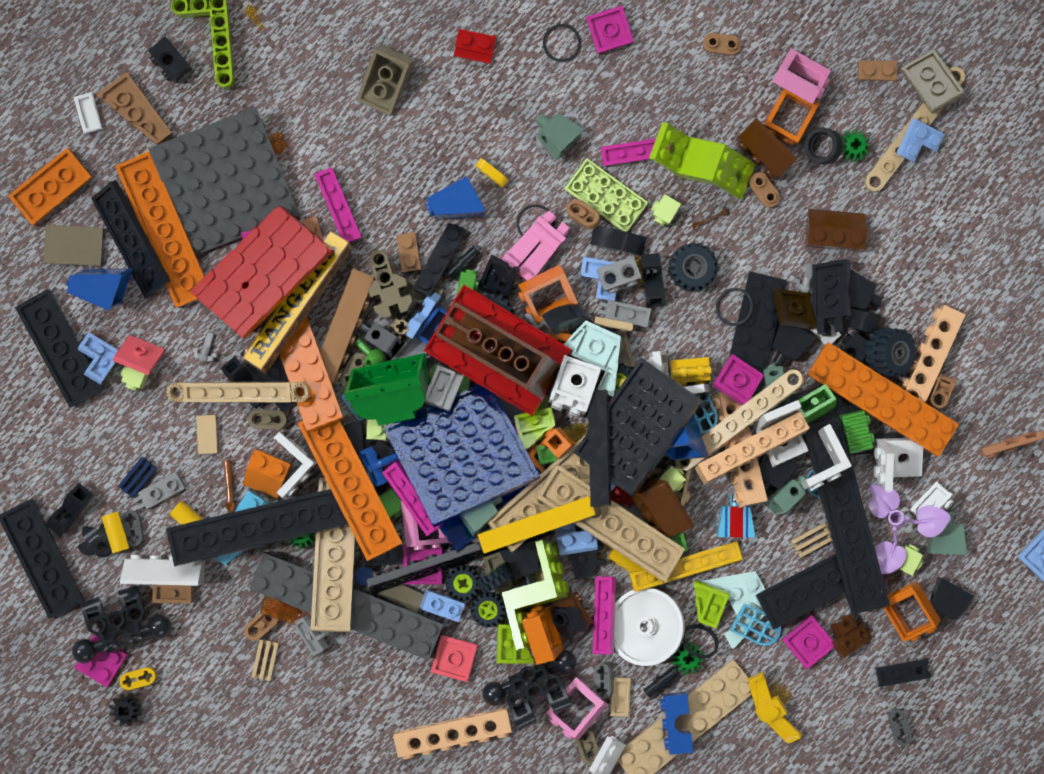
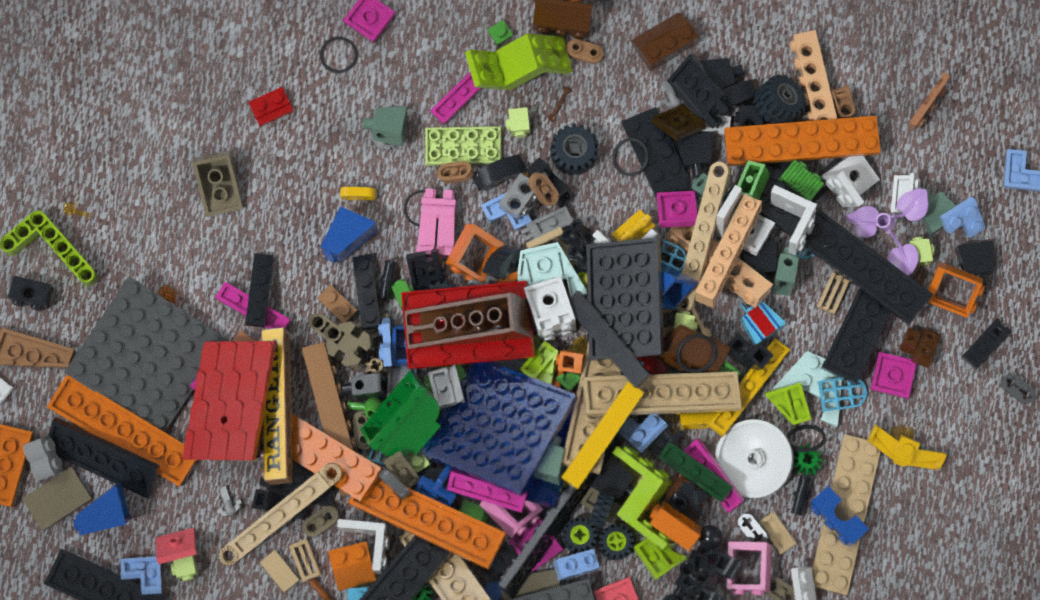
camera: 30 degrees left, 10 degrees down
(84, 205) = (43, 458): none -> light grey brick
(226, 438) = (311, 575): none -> tan tile
(343, 437) = (394, 484): none -> dark grey beam
(353, 195) = (259, 290): none -> black plate
(358, 430) = (402, 469): none -> dark tan plate
(591, 604) = (695, 472): none -> dark green plate
(640, 345) = (578, 237): none -> black axle
(641, 282) = (542, 188): none -> medium nougat plate
(664, 497) = (709, 363): none -> black tyre
(706, 122) = (500, 33): none -> bright green plate
(706, 542) = (753, 356): none -> black brick
(967, 558) = (964, 214): none -> light blue plate

